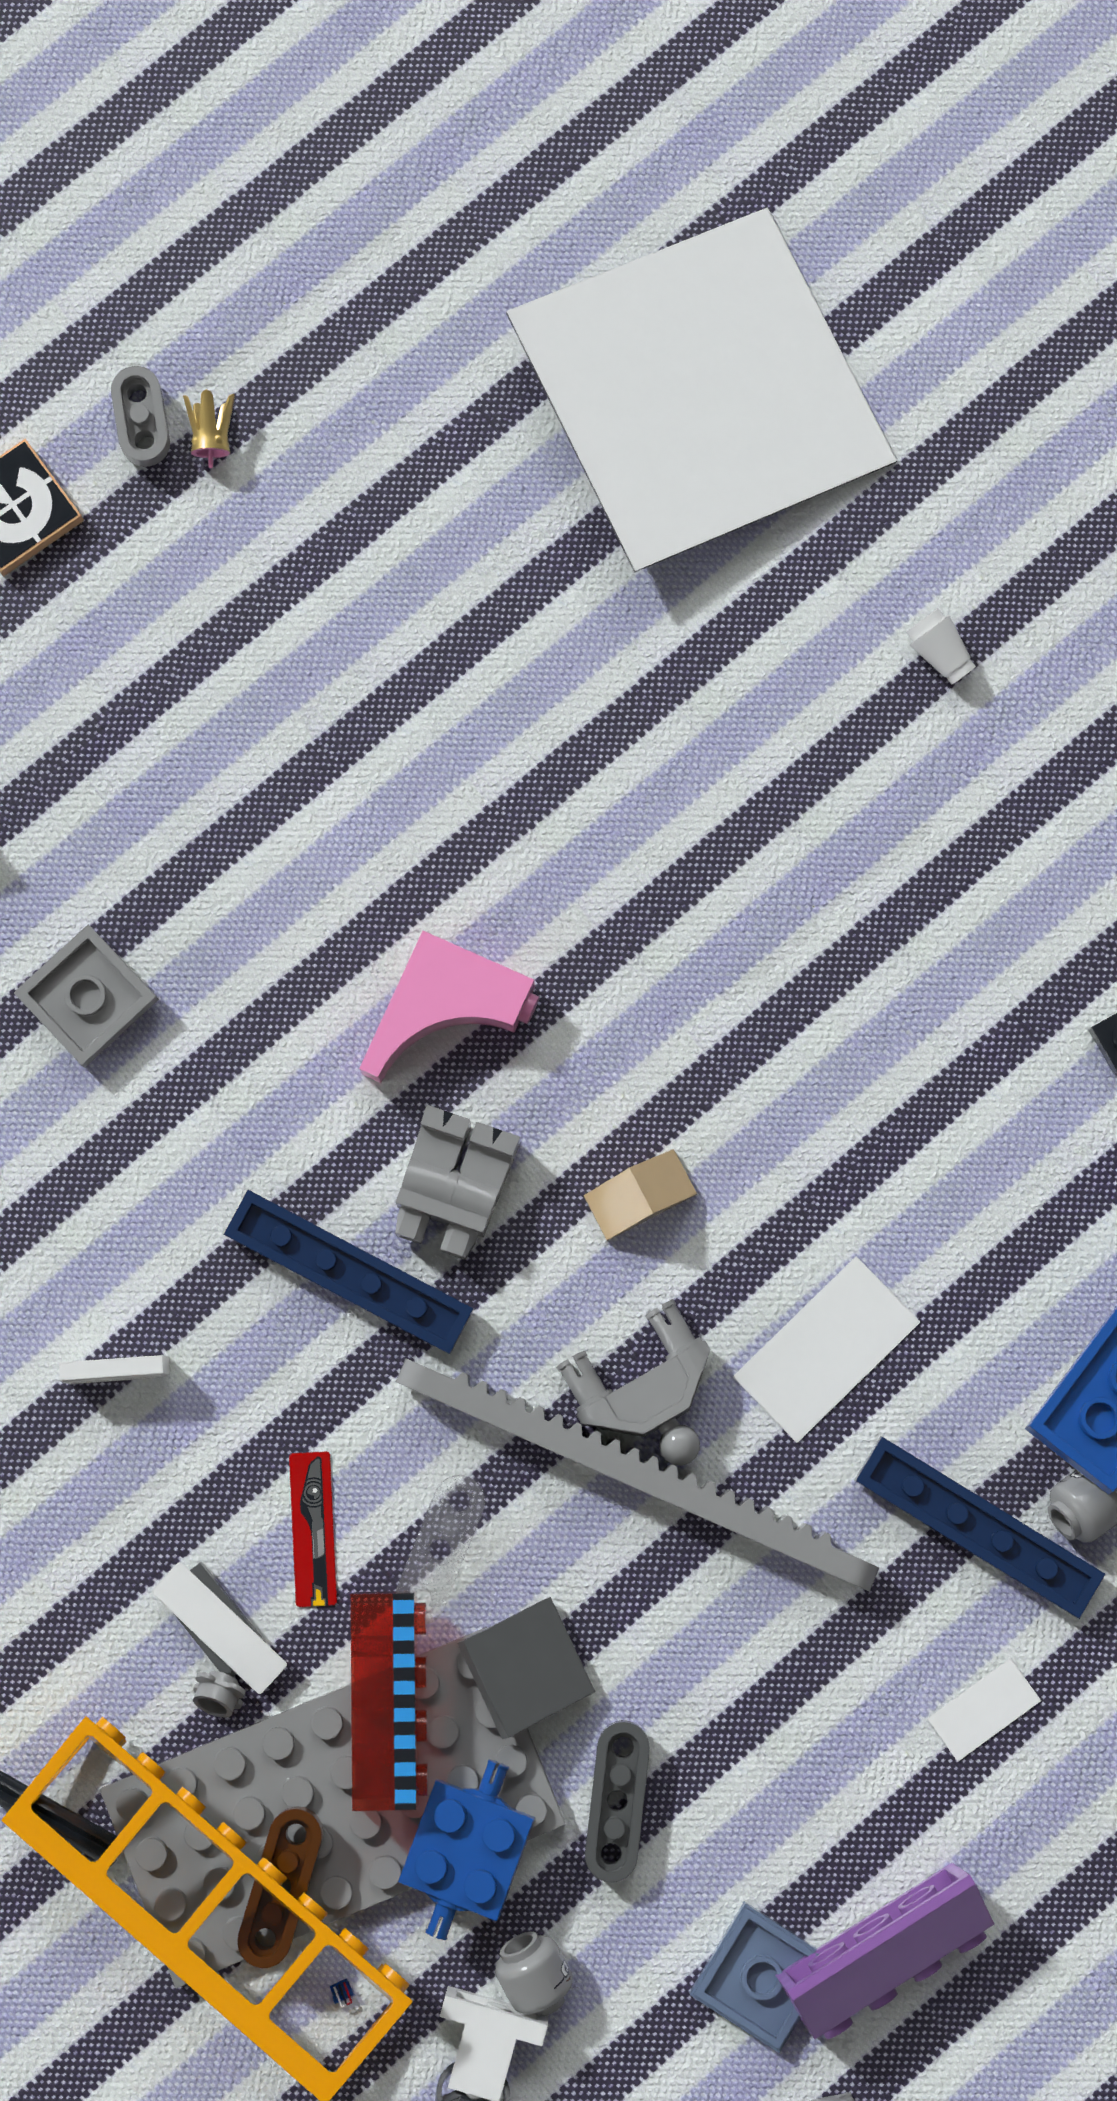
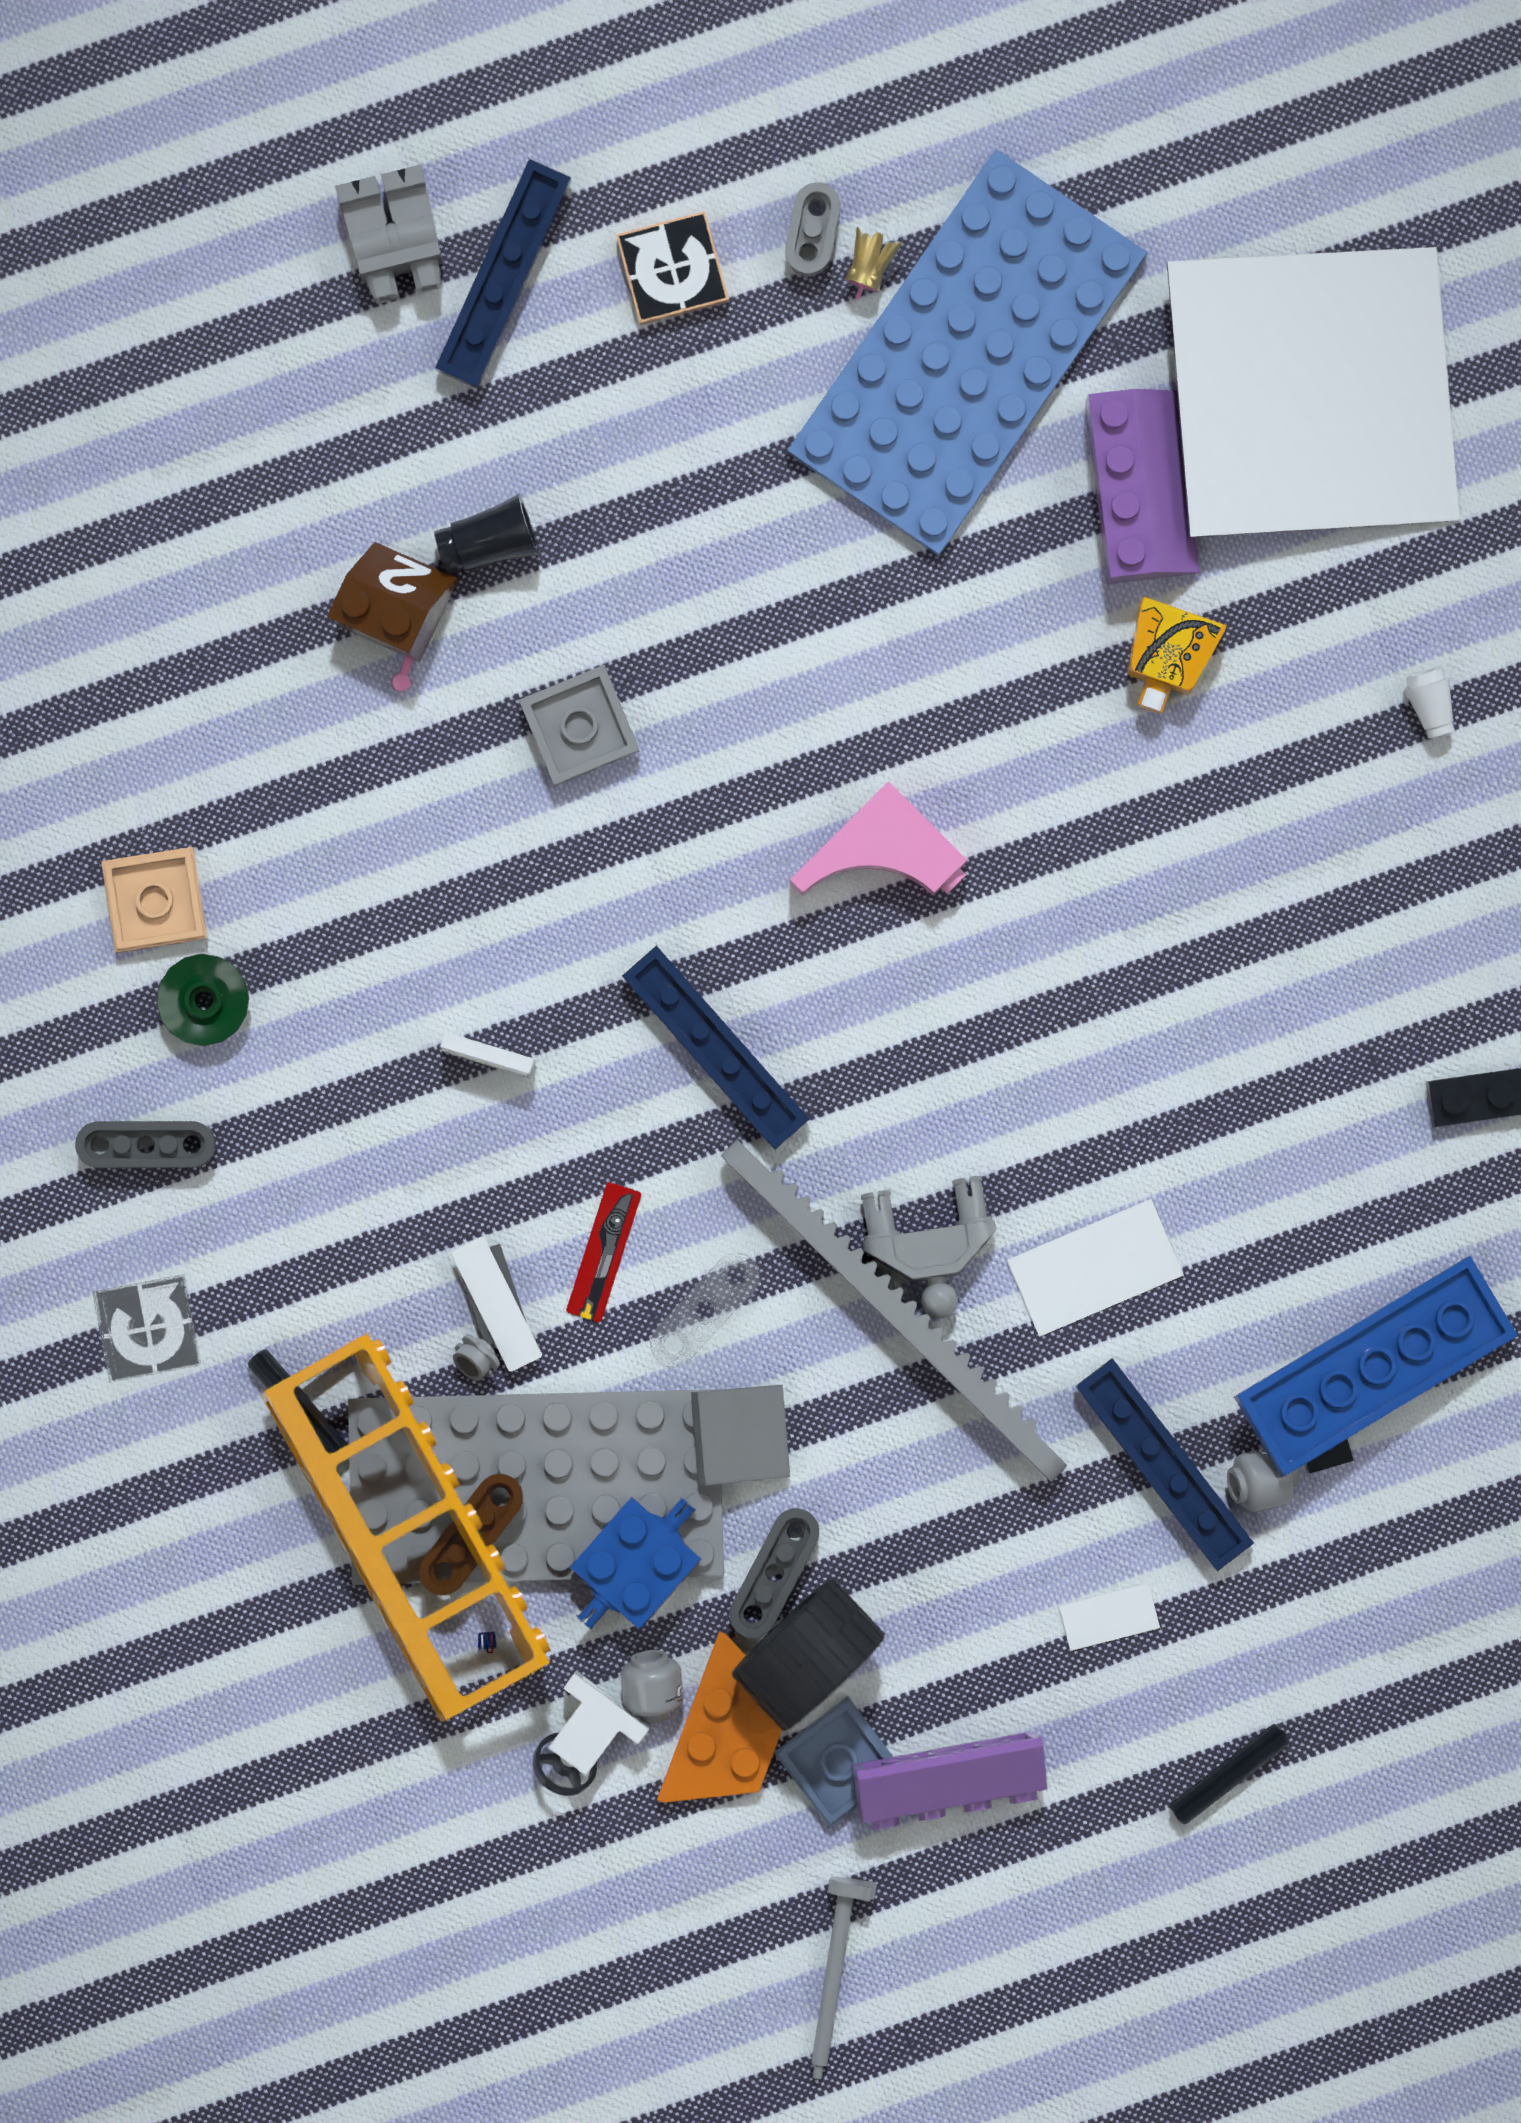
camera: 20 degrees right, 5 degrees up
(341, 481) = (967, 352): none -> medium blue plate
(386, 1701) = (615, 1414): clear red brick -> none
(450, 1196) = (825, 1016): light grey hips -> none
(564, 542) = (1140, 484): none -> medium lavender slope
(631, 1989) = (724, 1736): none -> orange wing
(639, 1194) = (987, 1076): tan slope -> none
(658, 694) = (1169, 651): none -> torso
(687, 1880) = (808, 1655): none -> black tyre

